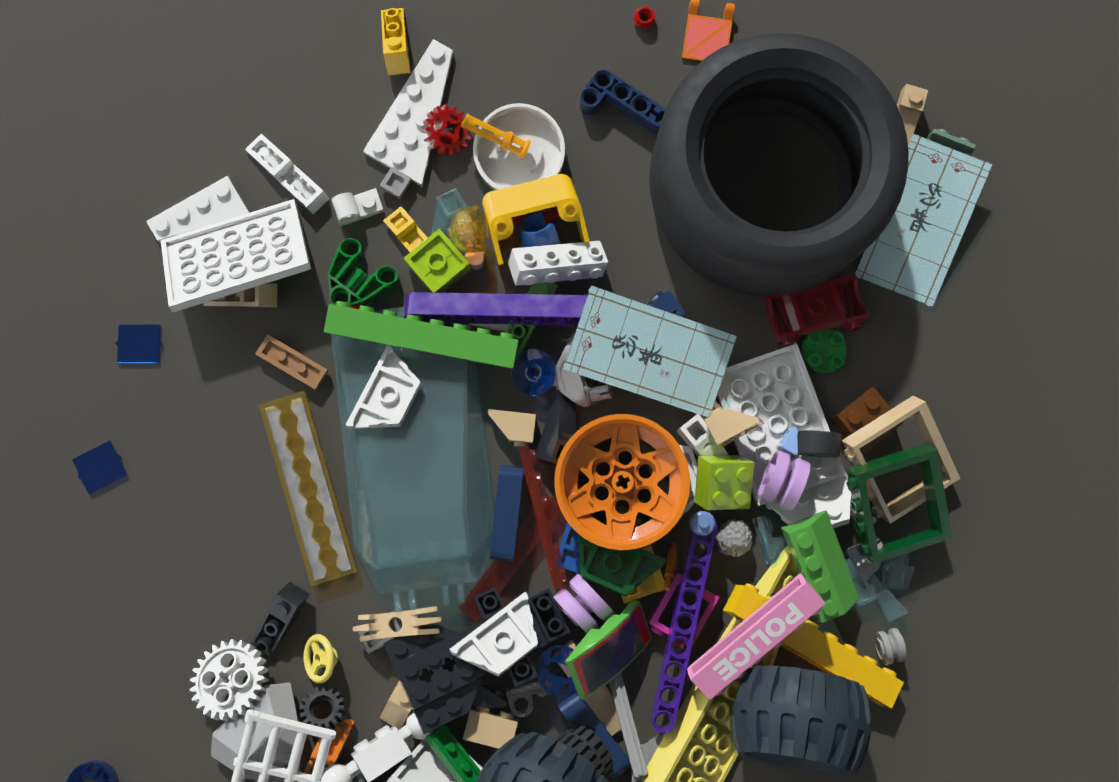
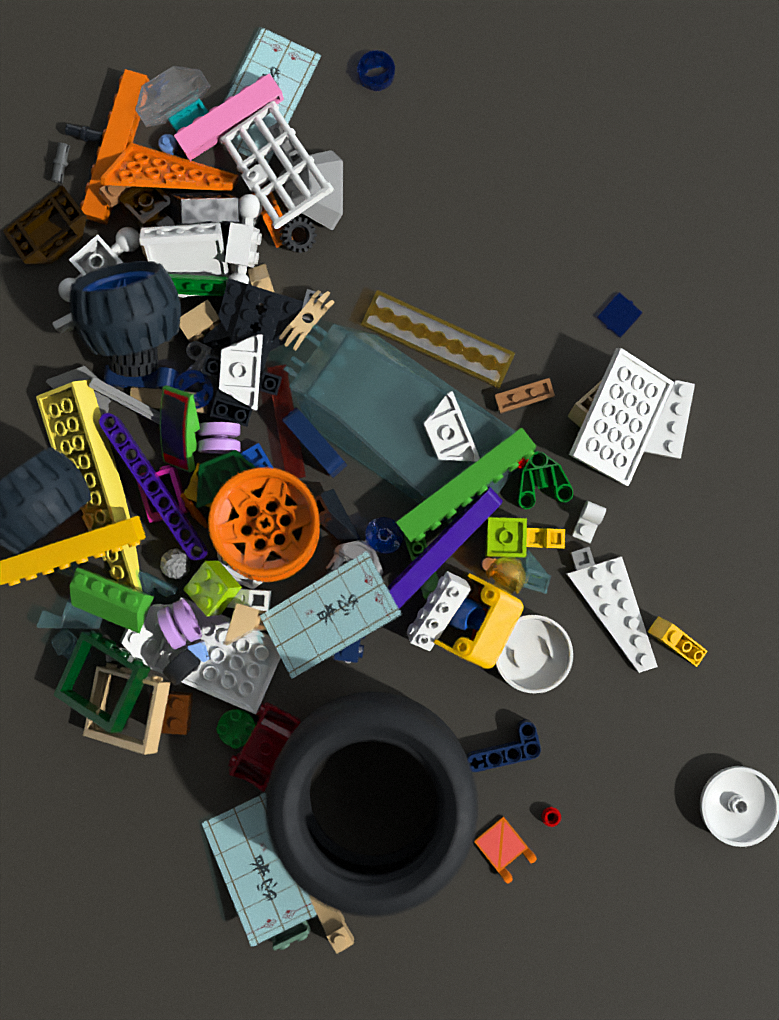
camera: 145 degrees right, 5 degrees up
(99, 467) = (563, 228): clear blue piece -> none
(229, 680) = (380, 197): white gear -> none
(279, 619) = (374, 255): black slope -> none
(287, 174) = (649, 496): white slope -> none
(323, 657) = (329, 261): light yellow piece -> none
(445, 119) = (595, 621): red gear -> none
(508, 138) = (545, 652): light orange pin -> none
(515, 426) = (362, 494): tan slope -> none
(545, 526) = (299, 464): clear red plate -> none
(702, 523) = (198, 549): medium blue piece -> none
(755, 636) = (103, 518): bright pink brick -> none
(862, 564) = (87, 625): black sticker -> none
(890, 646) = (27, 597): light grey wheel -> none

